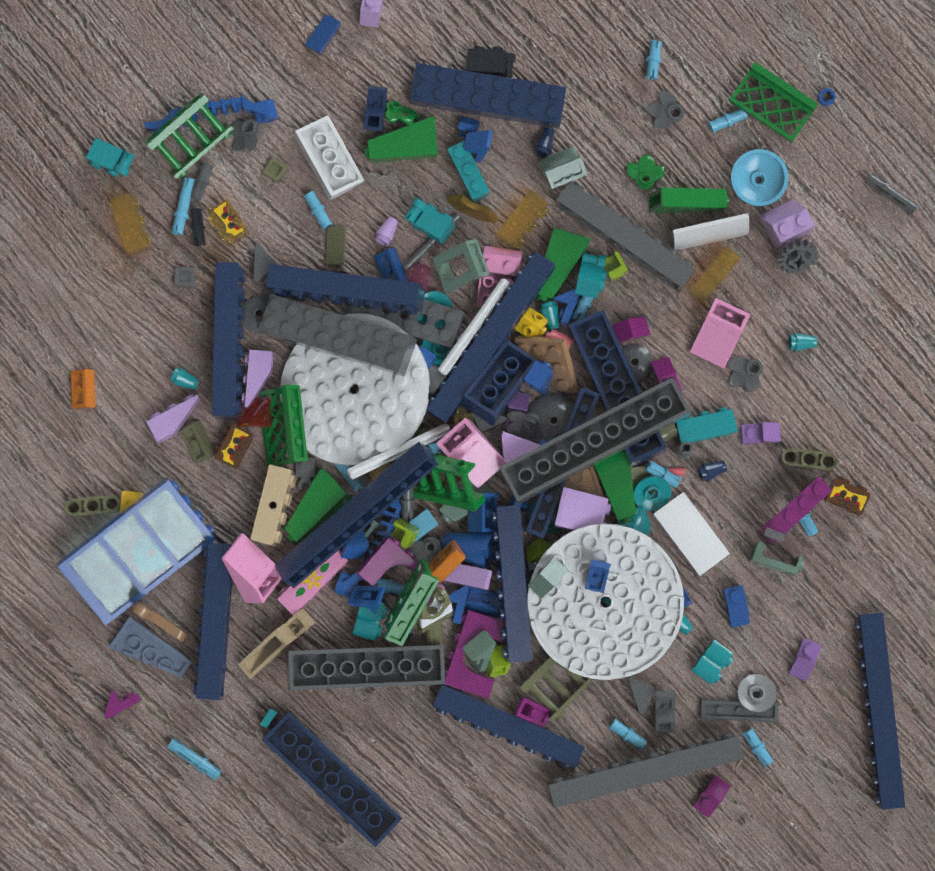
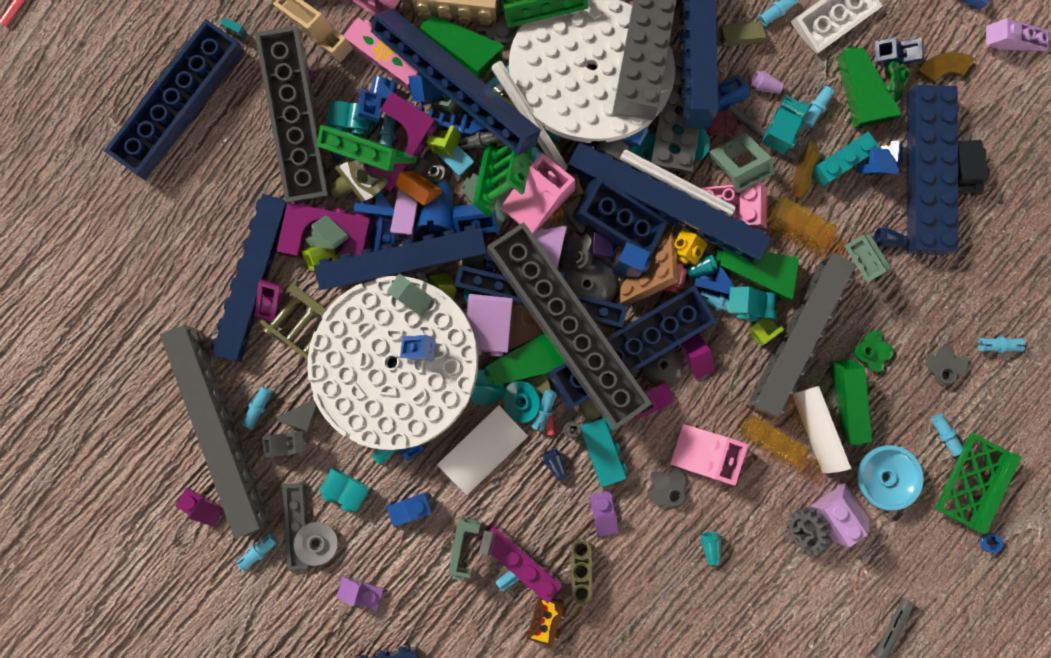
camera: 75 degrees right, 0 degrees up
(390, 66) = (945, 64): none -> pearl gold tile
(415, 188) = (818, 106): none -> medium azure pin

